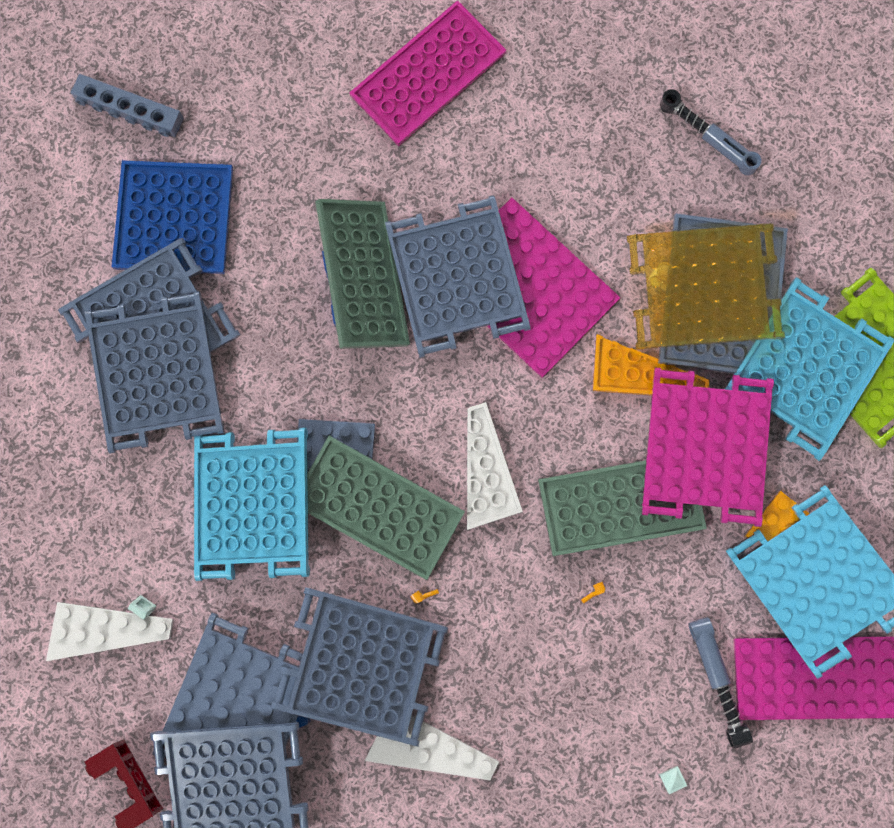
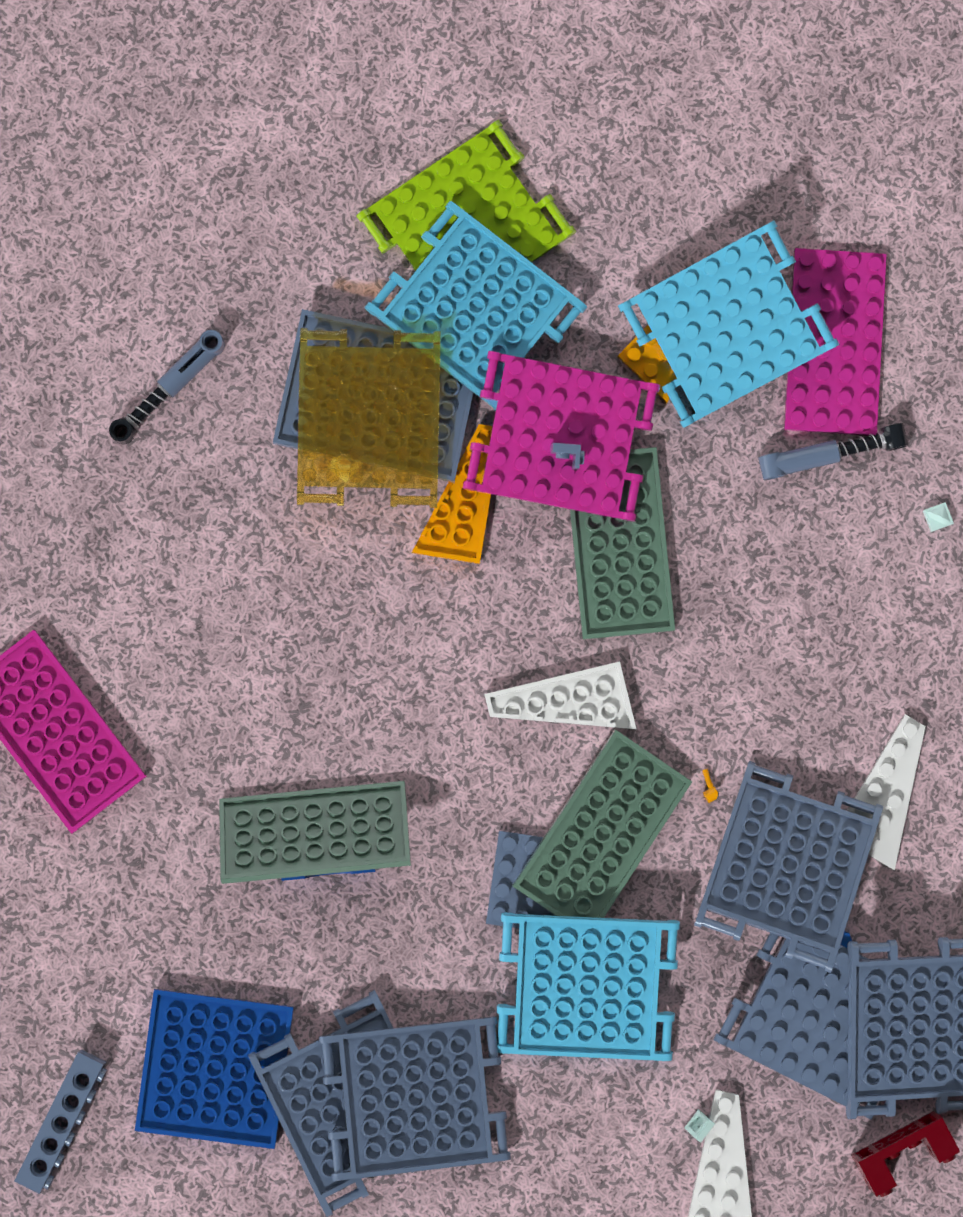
camera: 90 degrees left, 5 degrees up
(457, 275) = (324, 716): sand blue plate -> none
(556, 288) = (343, 631): dark pink plate -> none
(599, 589) = (717, 579): light orange hand -> none
(696, 447) = (564, 451): none -> sand blue bracket

